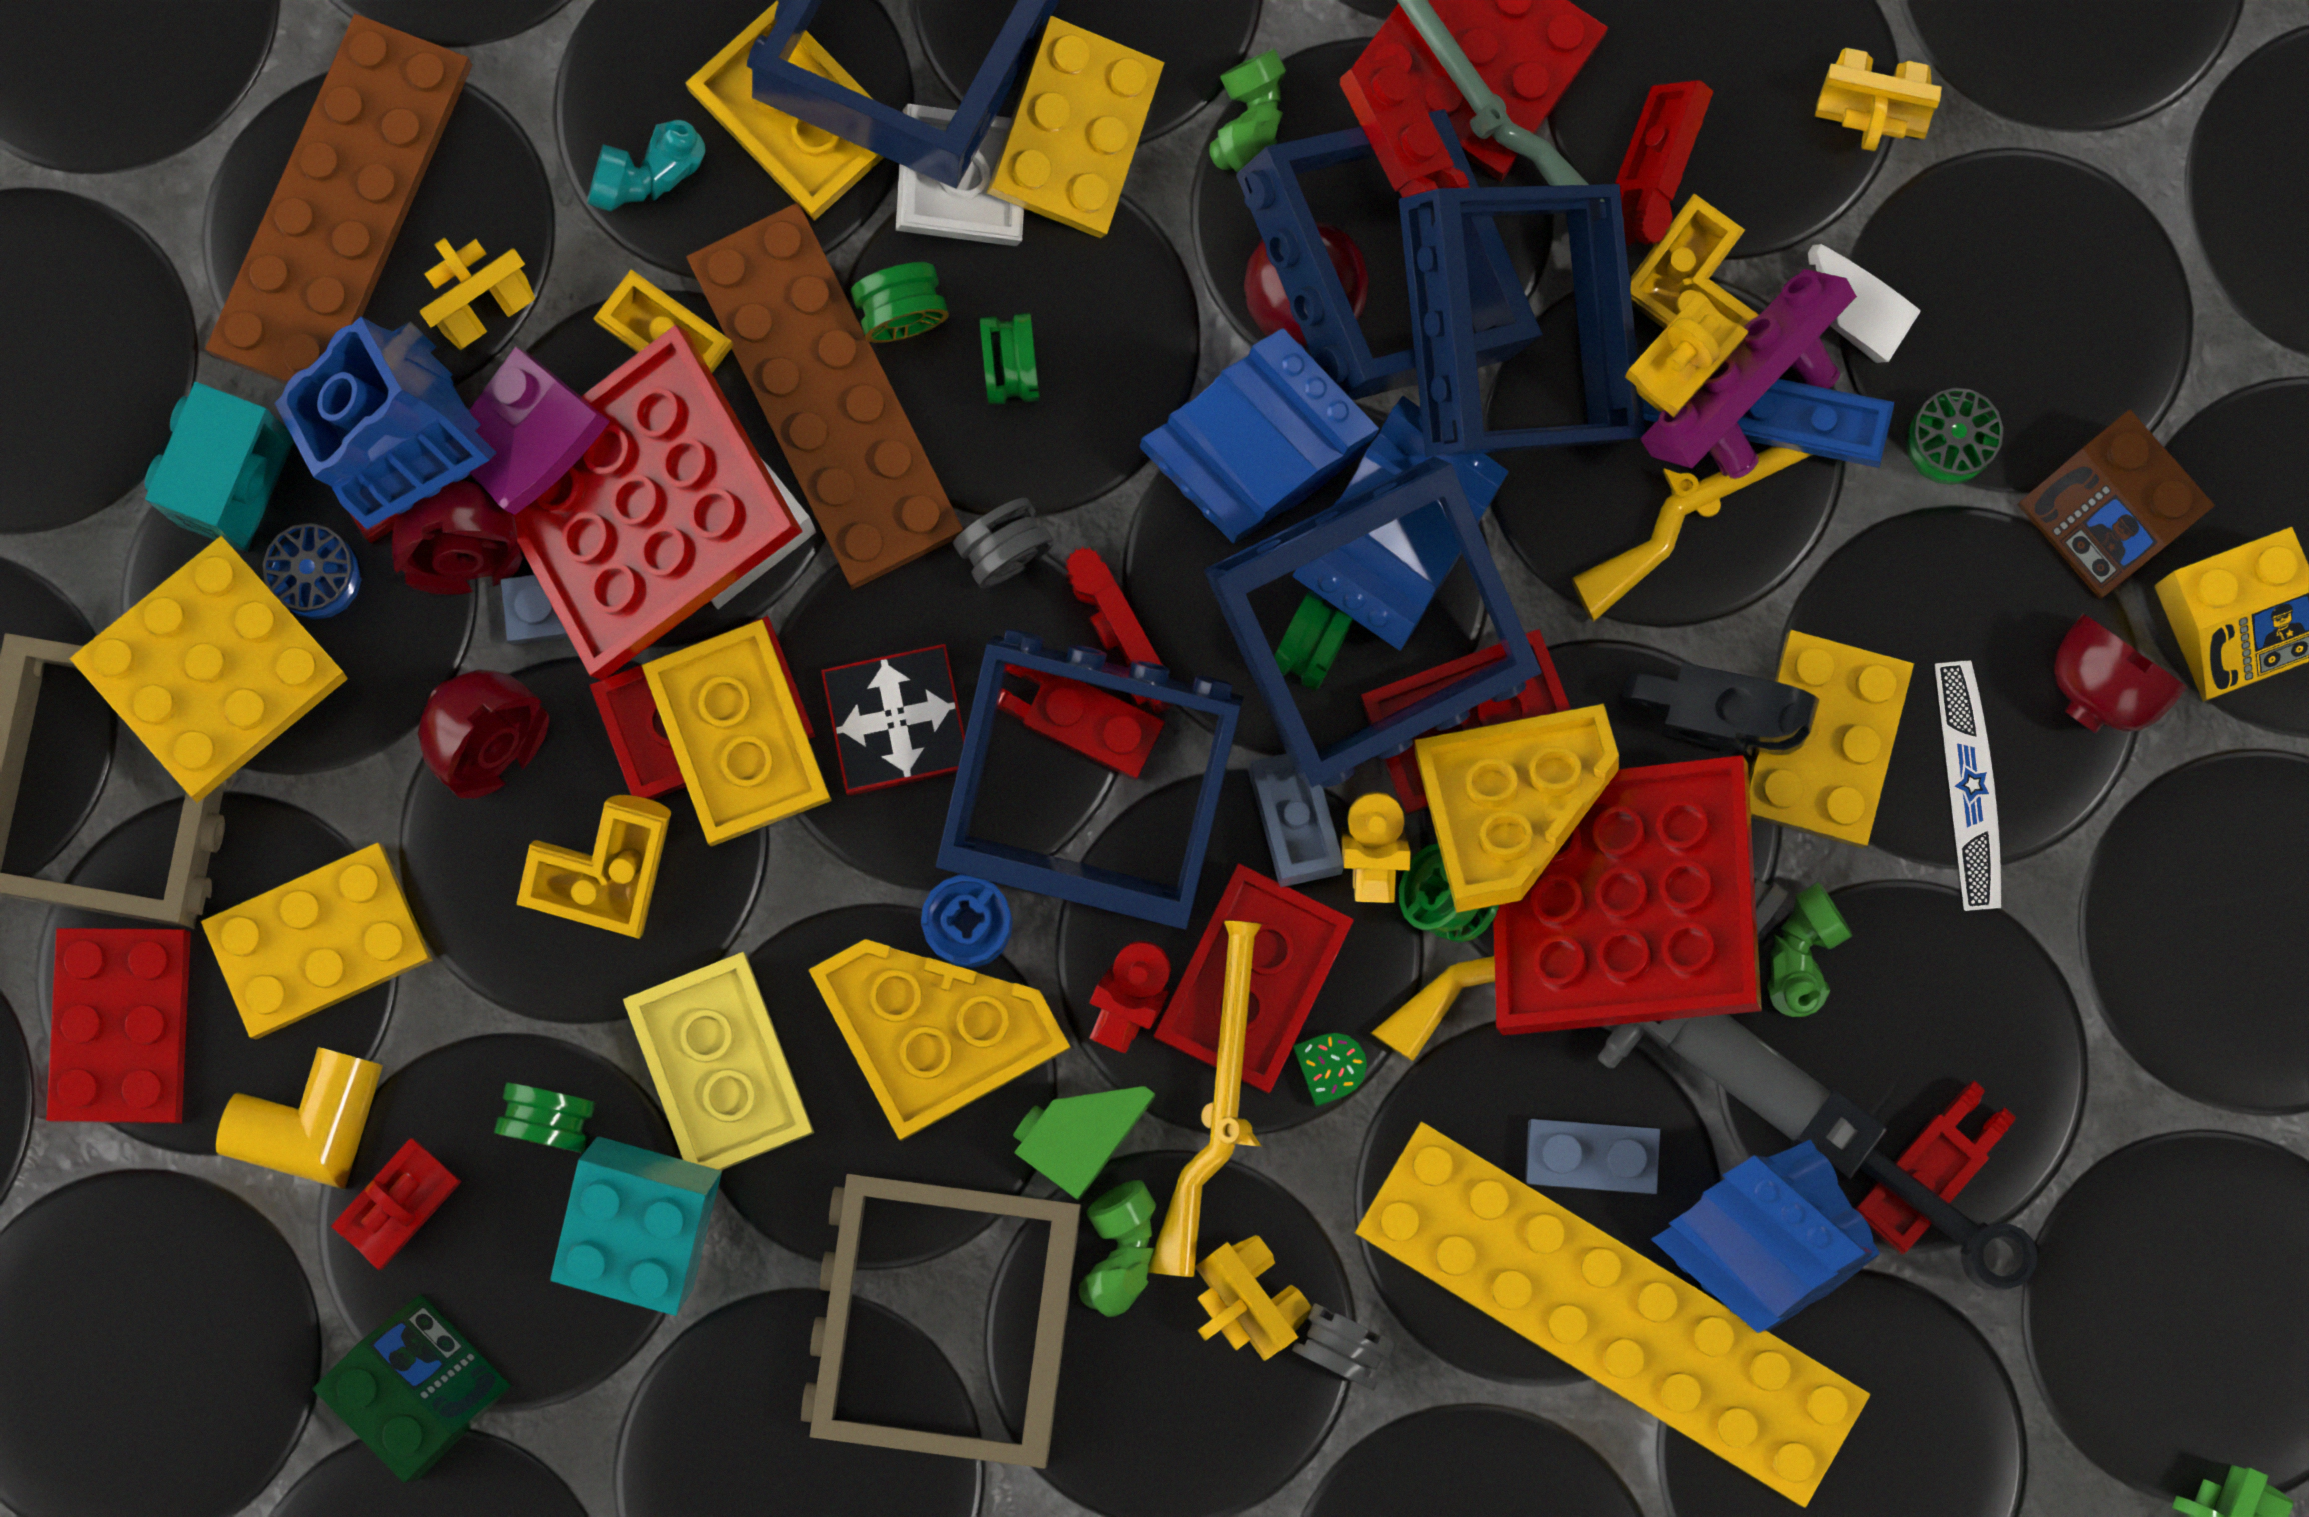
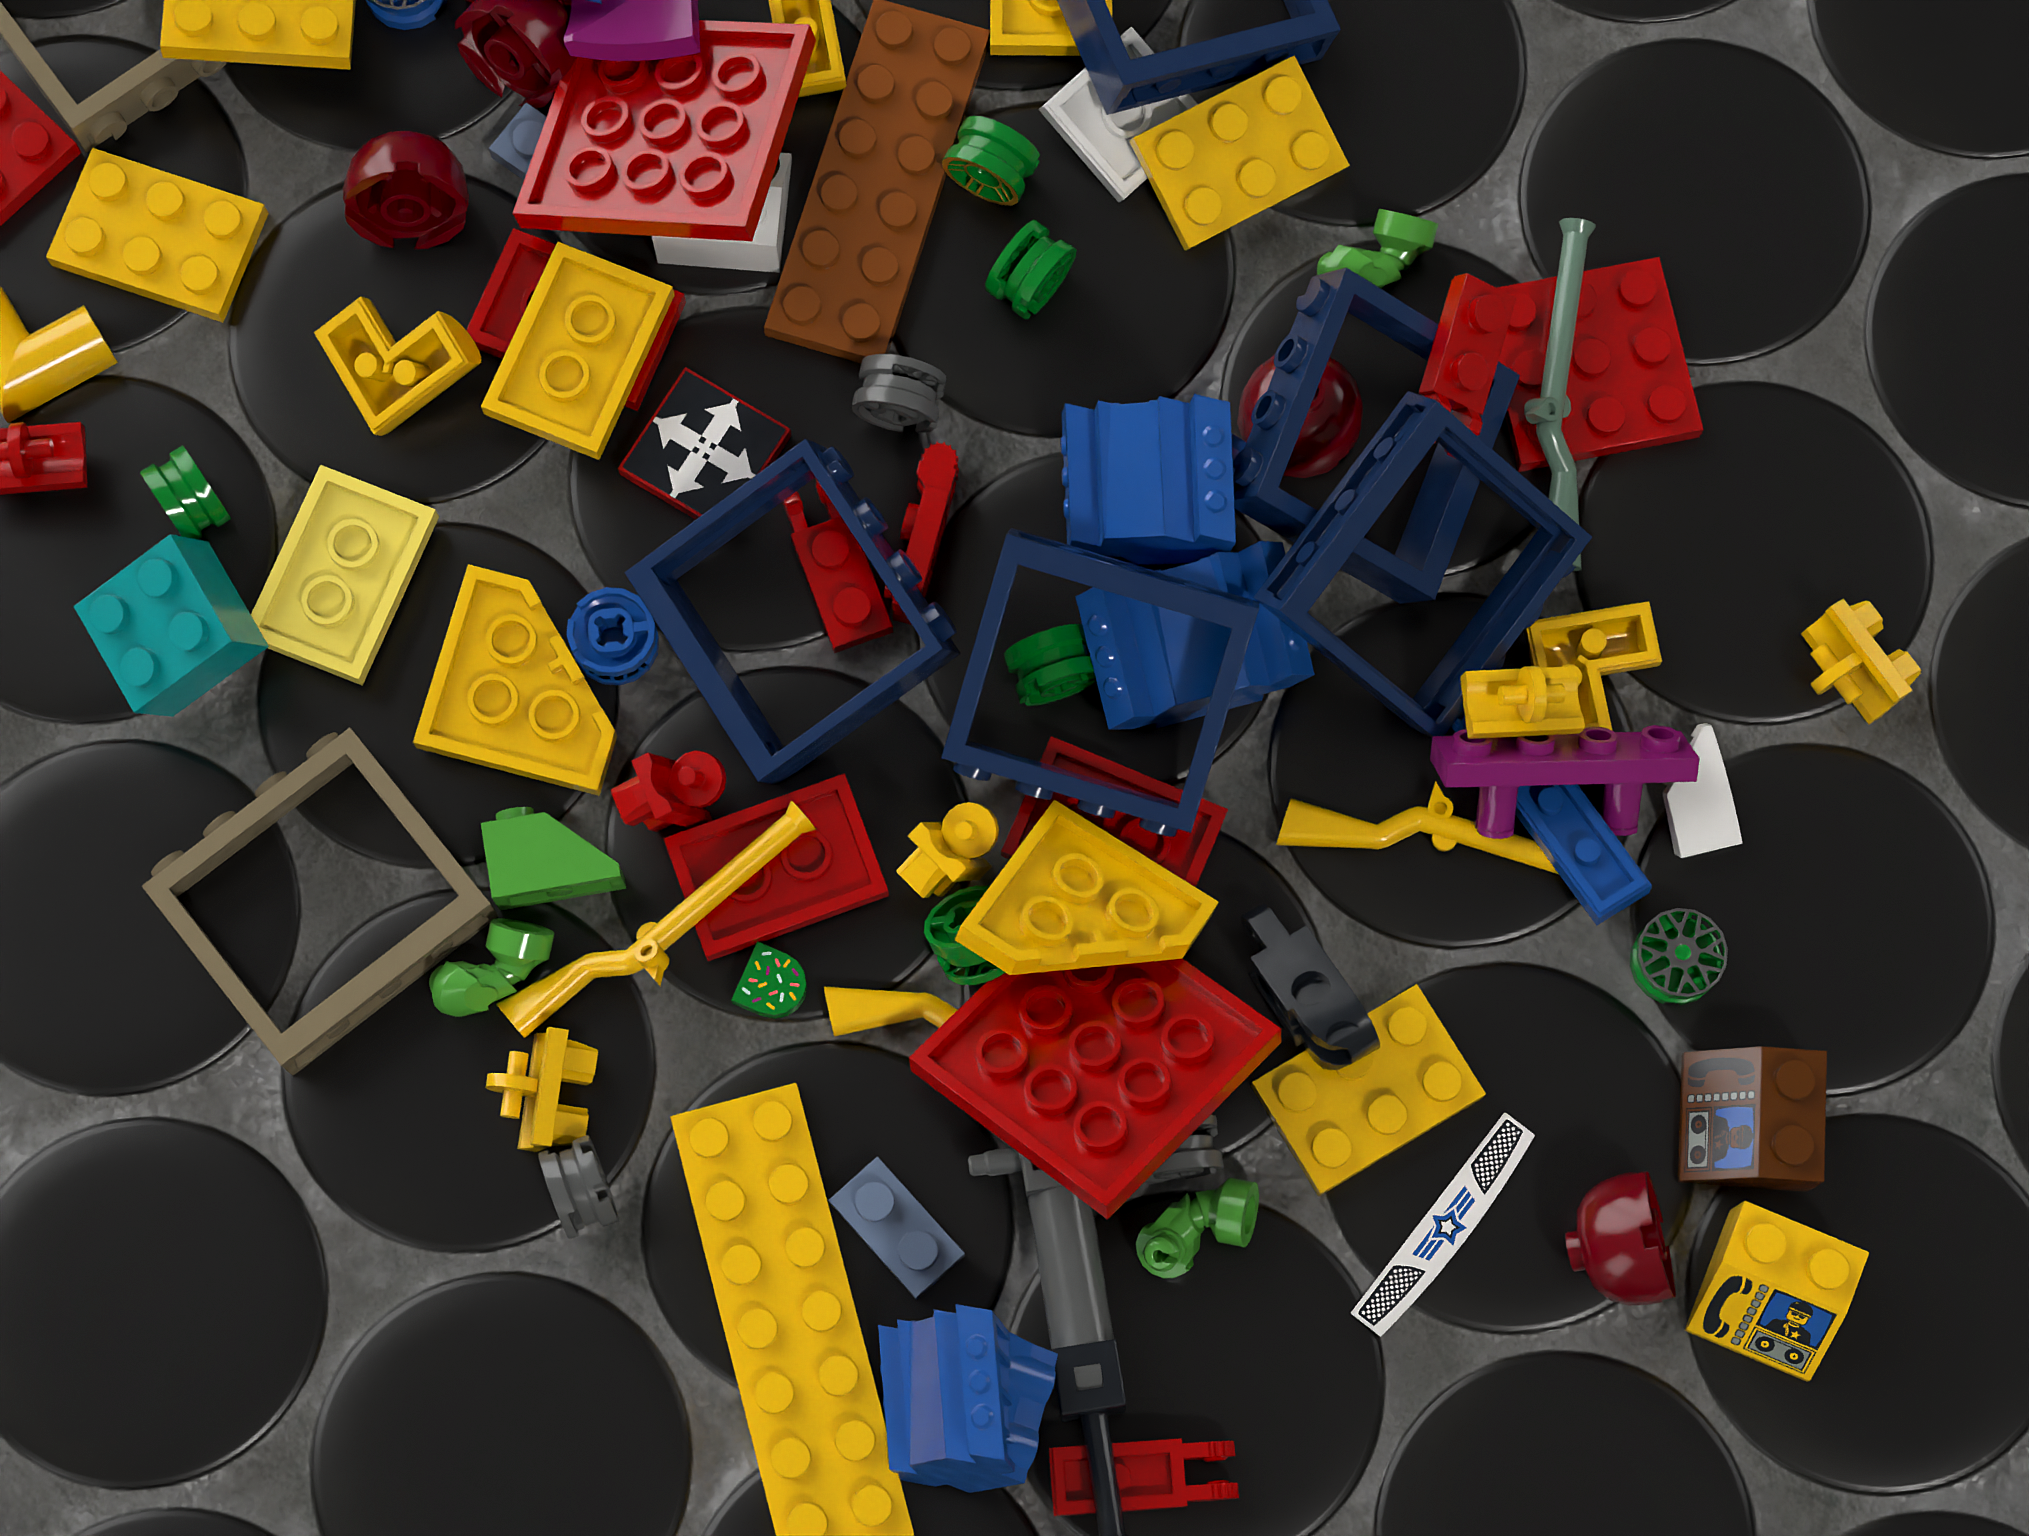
camera: 40 degrees right, 5 degrees down
(1294, 822) = (912, 782): sand blue plate -> none
(1659, 156) = (1644, 554): red hinge -> none

